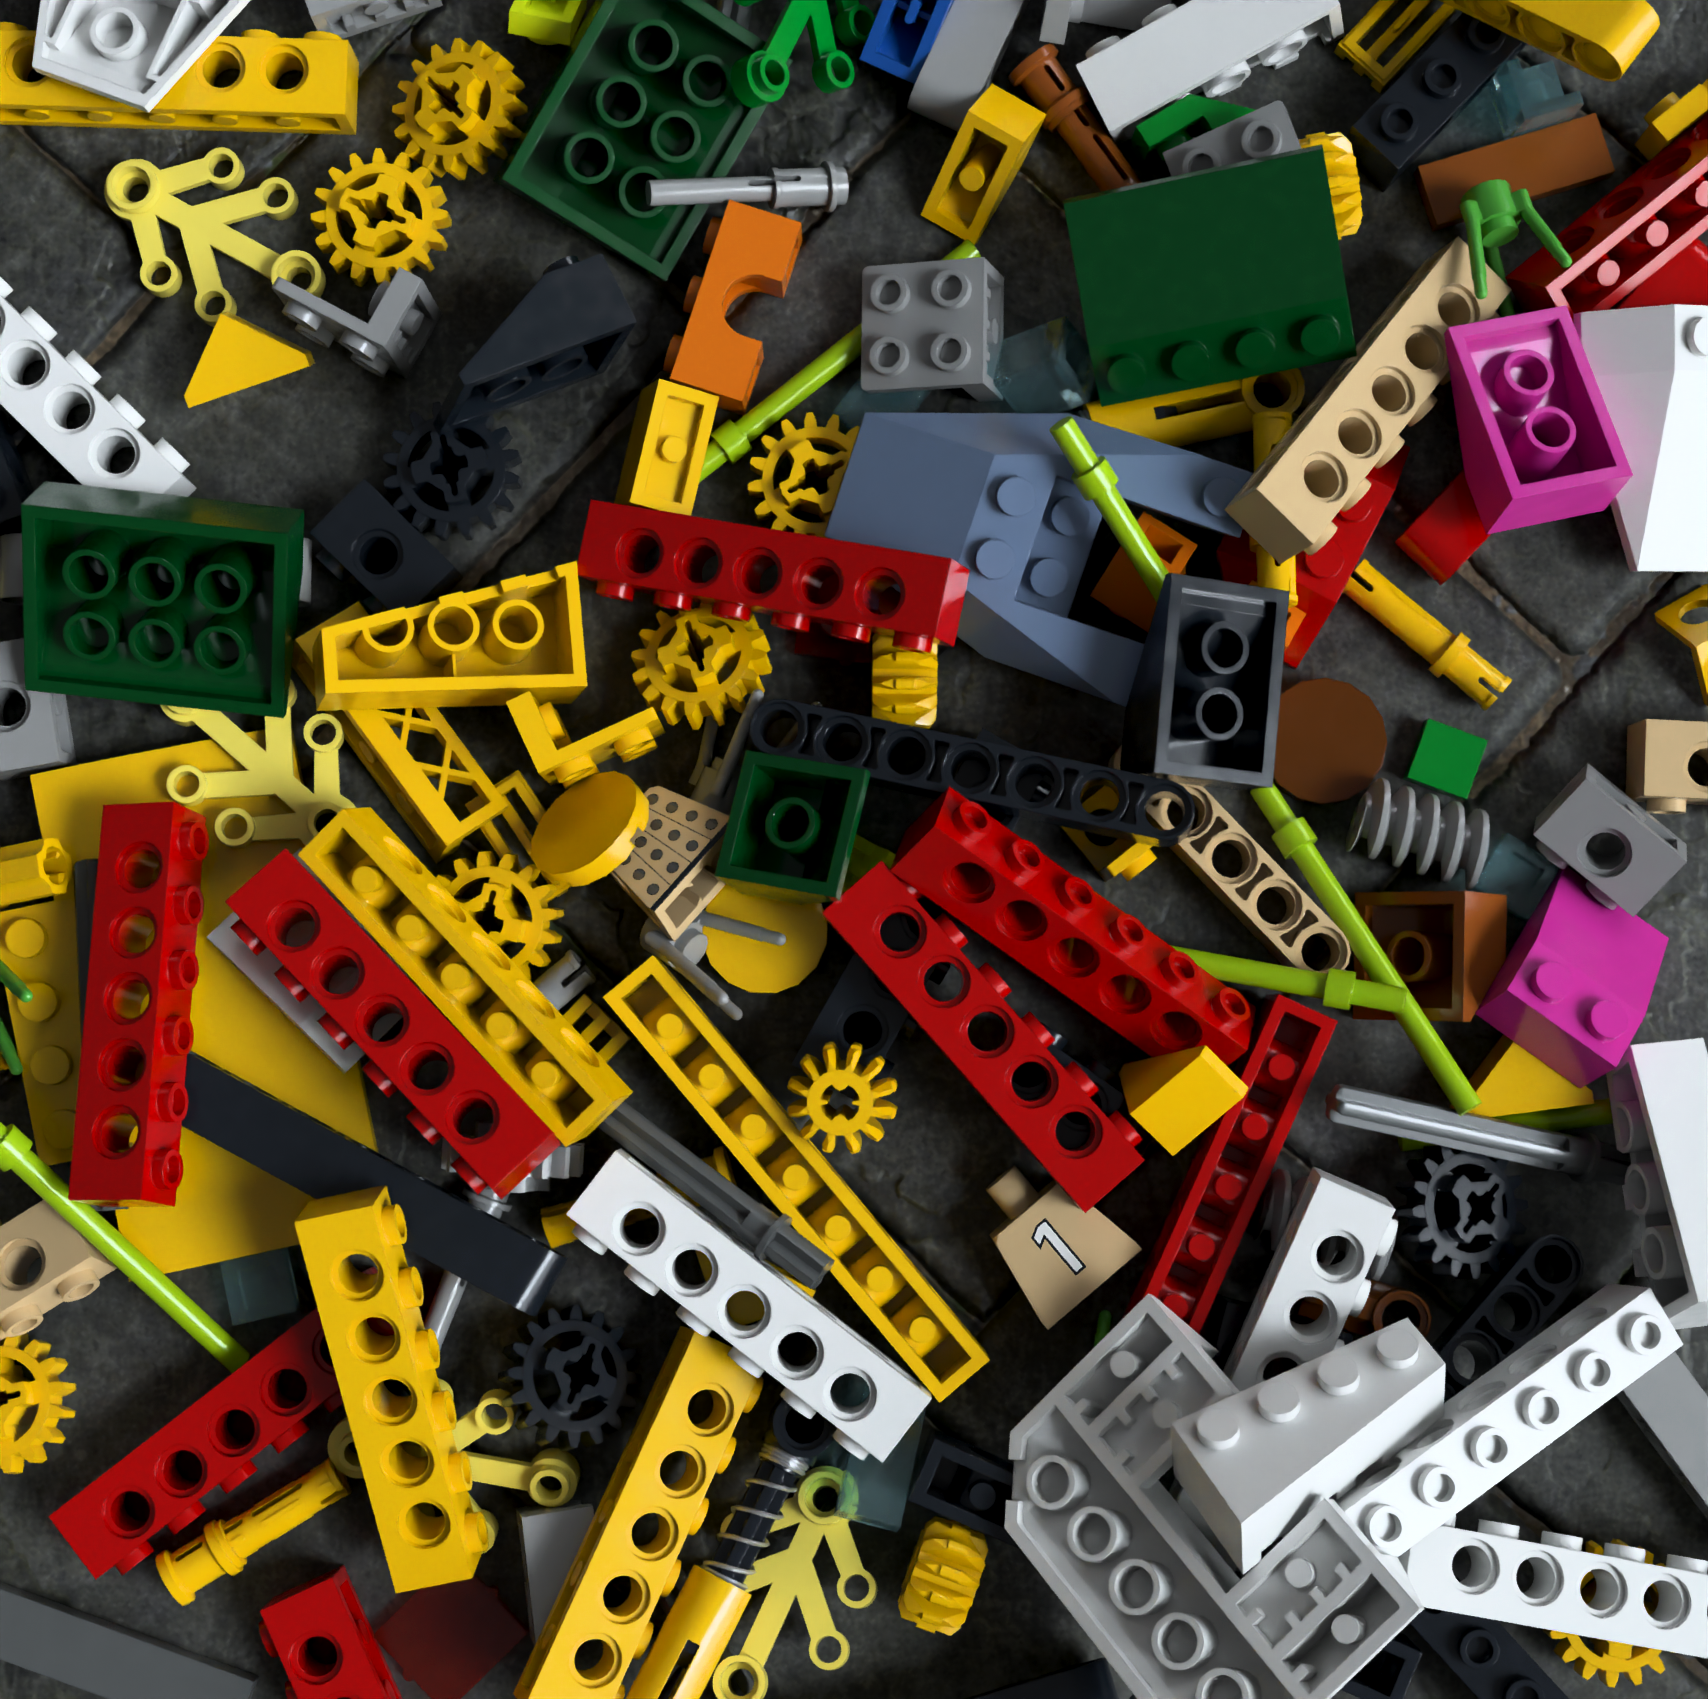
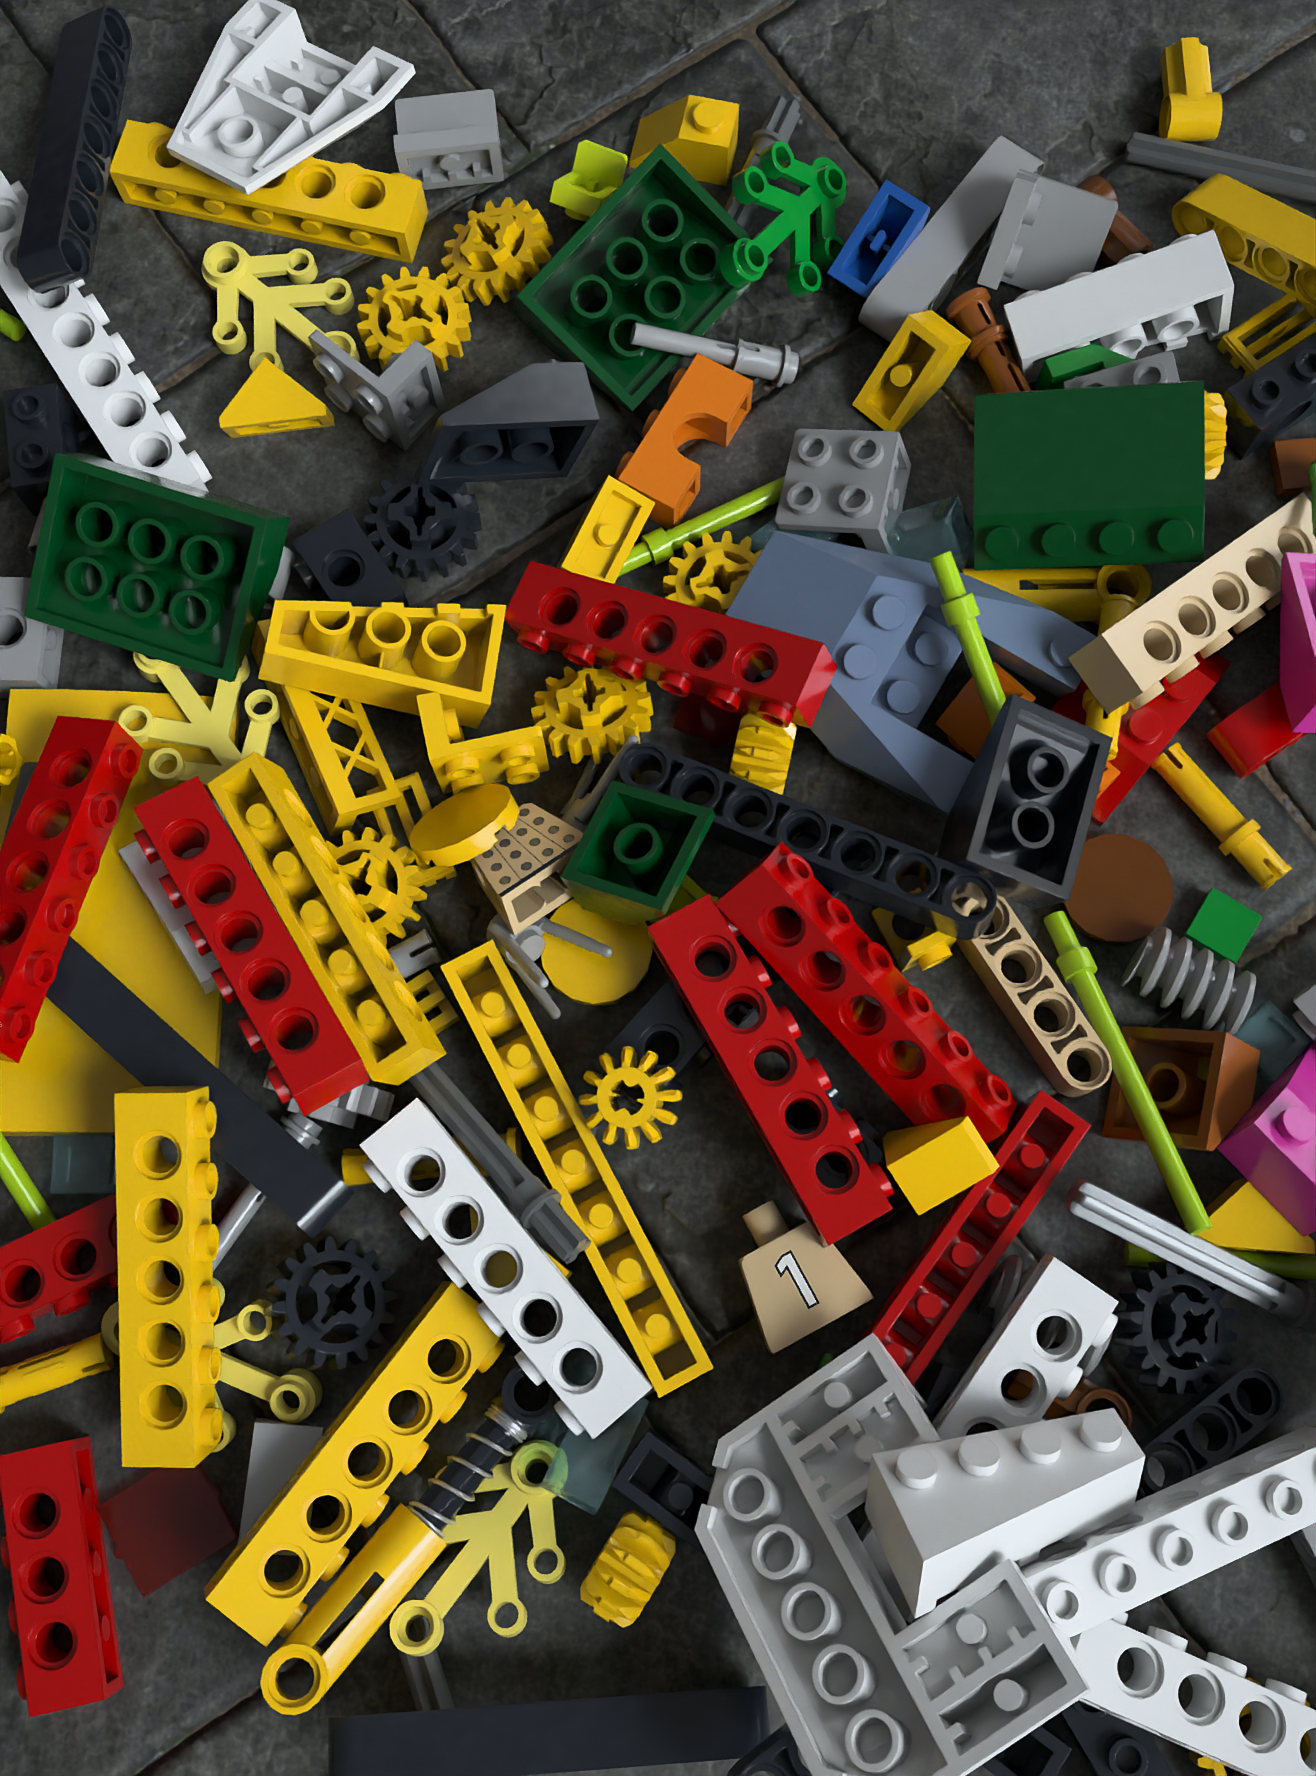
camera: 20 degrees right, 10 degrees down
(1336, 988) = (1094, 1096): lime bar -> none

